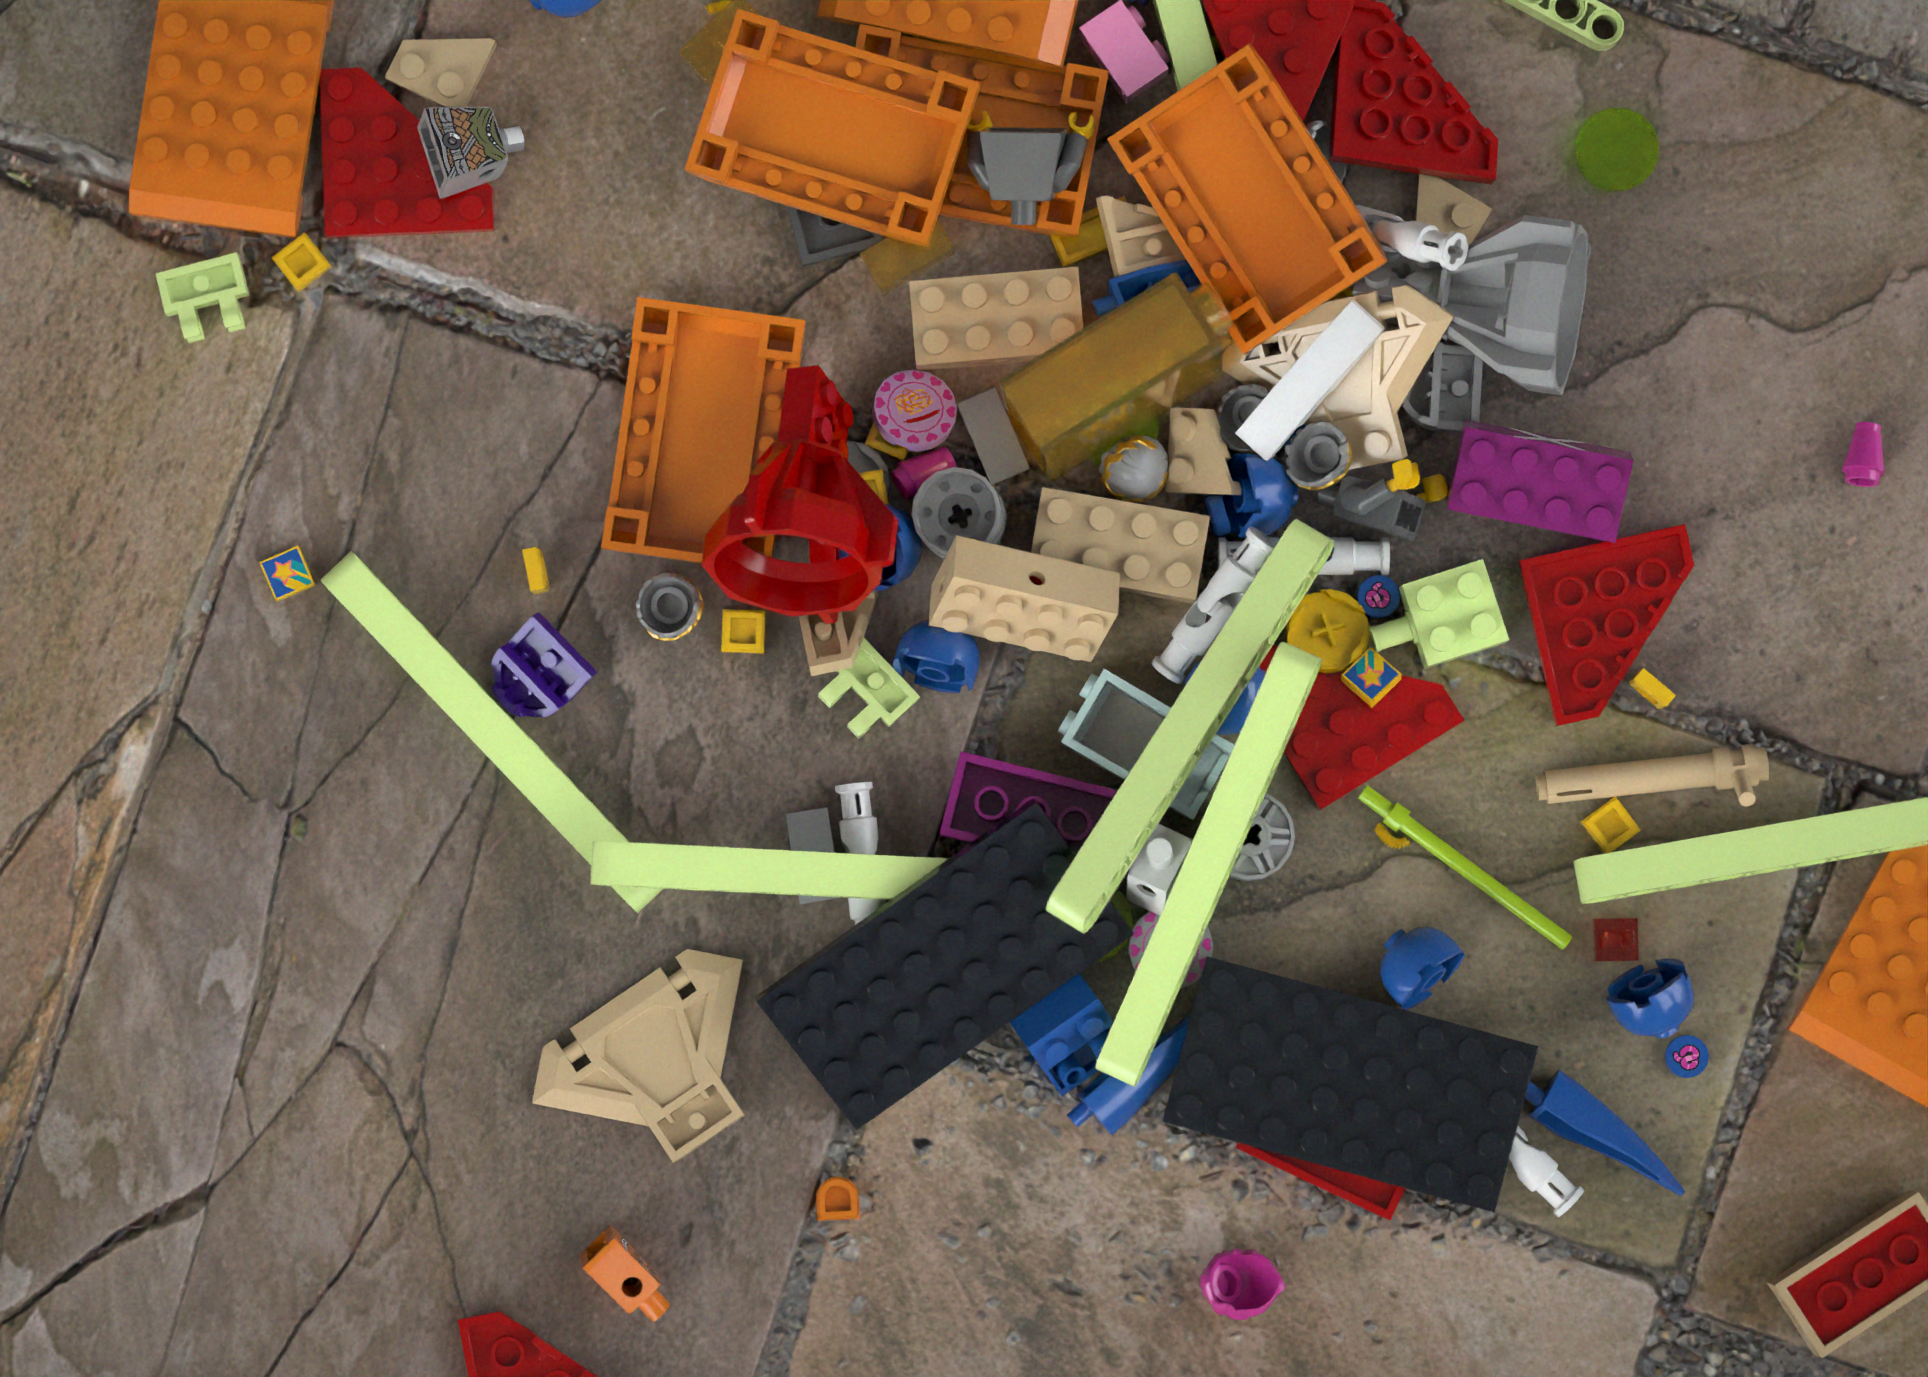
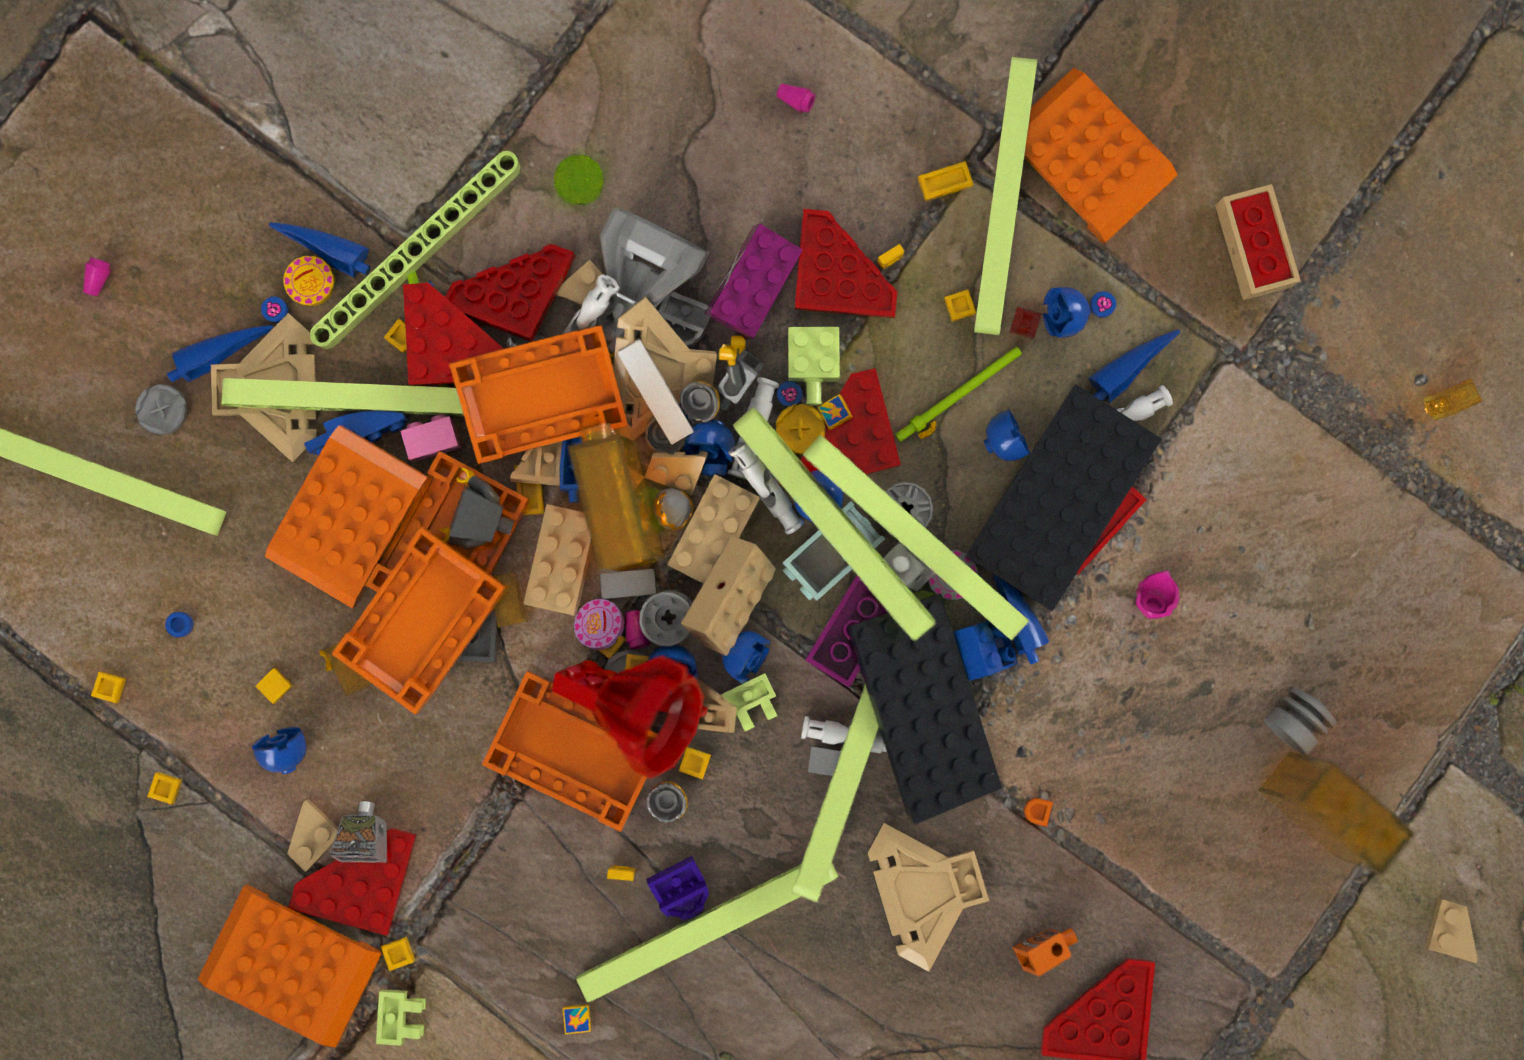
camera: 75 degrees left, 0 degrees up
(1719, 768) = (947, 233): tan cylinder -> none
(1806, 739) = (945, 181): none -> yellow tile

